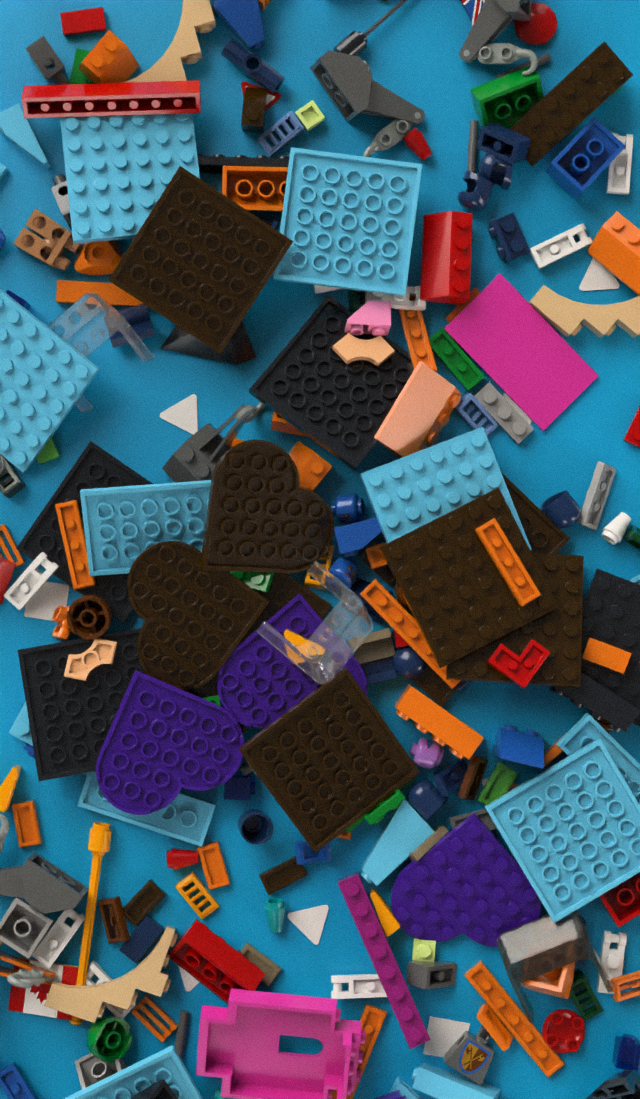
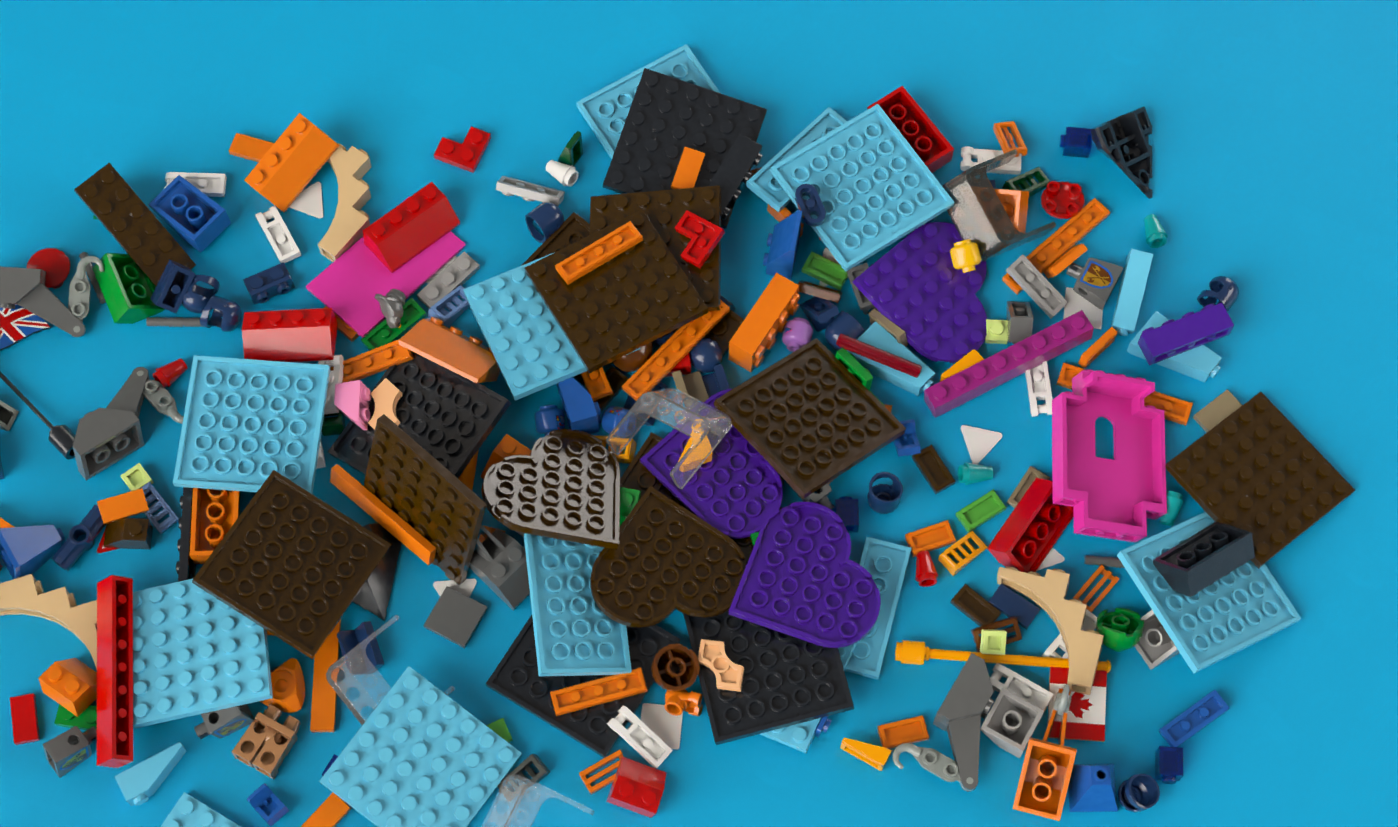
camera: 90 degrees left, 20 degrees down
(102, 916) = (993, 641): none -> yellowish green plate
(158, 414) = (455, 617): none -> dark grey tile
(238, 916) = (980, 511): none -> bright green tile
(252, 382) = (425, 497): none -> dark brown plate
(256, 346) = (382, 514): none -> orange tile
(278, 102) = (122, 506): none -> orange tile
(394, 832) = (879, 355): none -> dark red axle
(399, 1049) = (1097, 348): none -> orange tile
(467, 995) = (1036, 286): none -> light grey plate
(471, 357) = (392, 307): none -> dark grey animal
(498, 928) = (965, 255): none -> yellow head
(553, 777) = (810, 206): none -> dark blue plate
(559, 377) = (411, 227): none -> red slope

